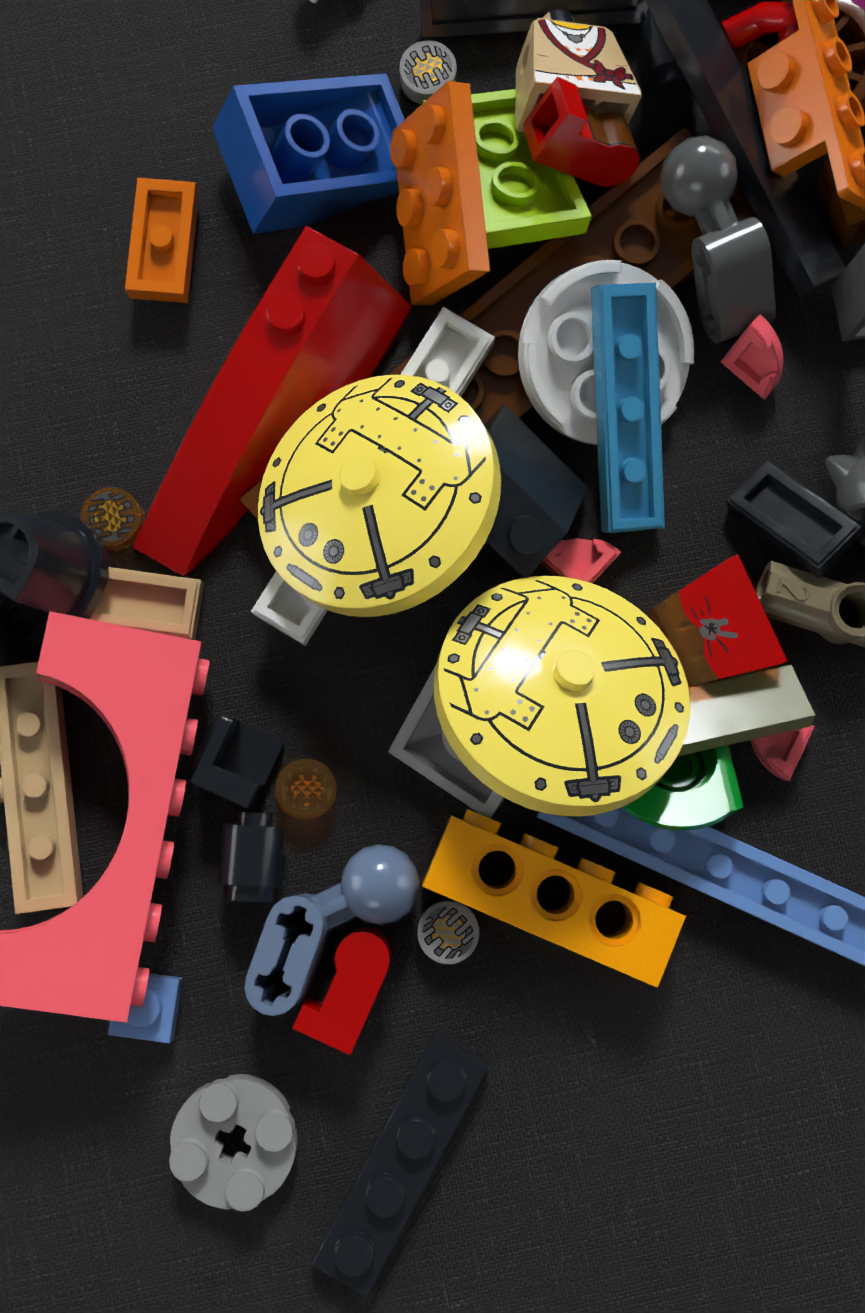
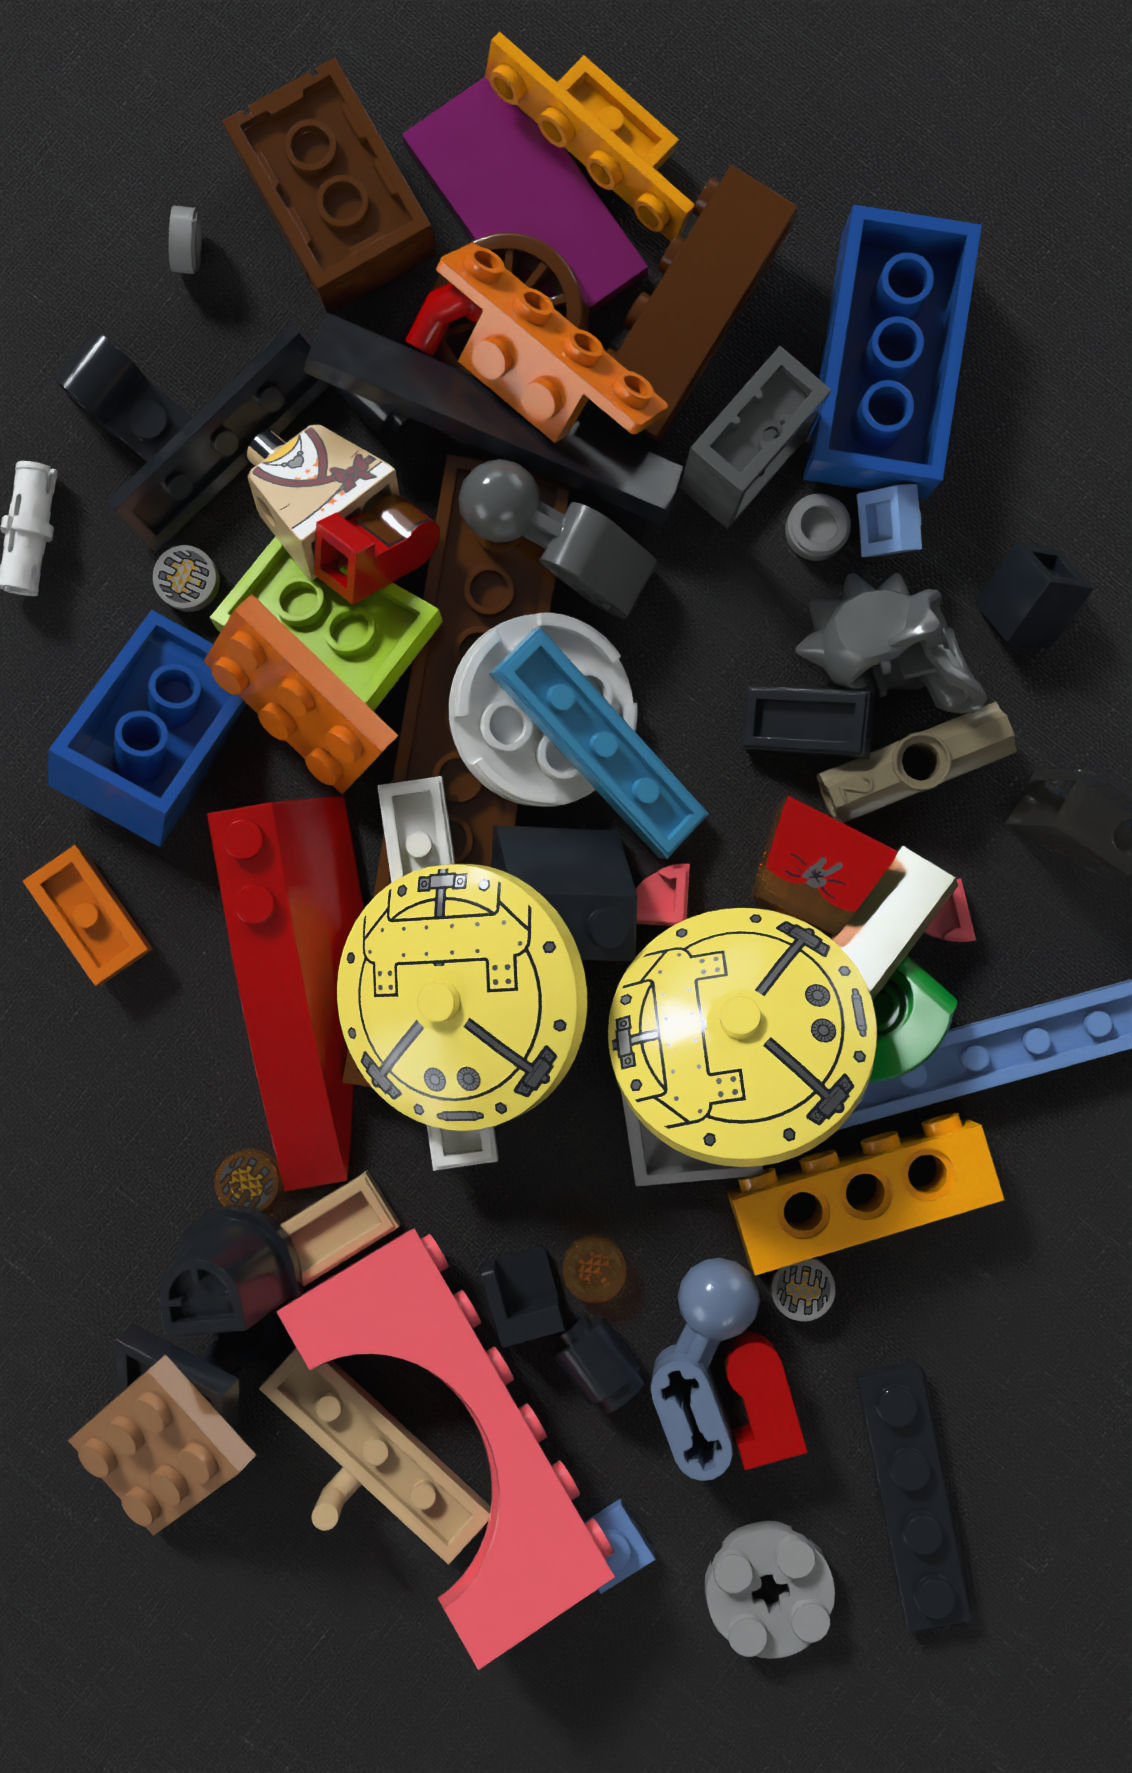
camera: 40 degrees left, 5 degrees up
(757, 357) = (669, 606): coral tile -> none

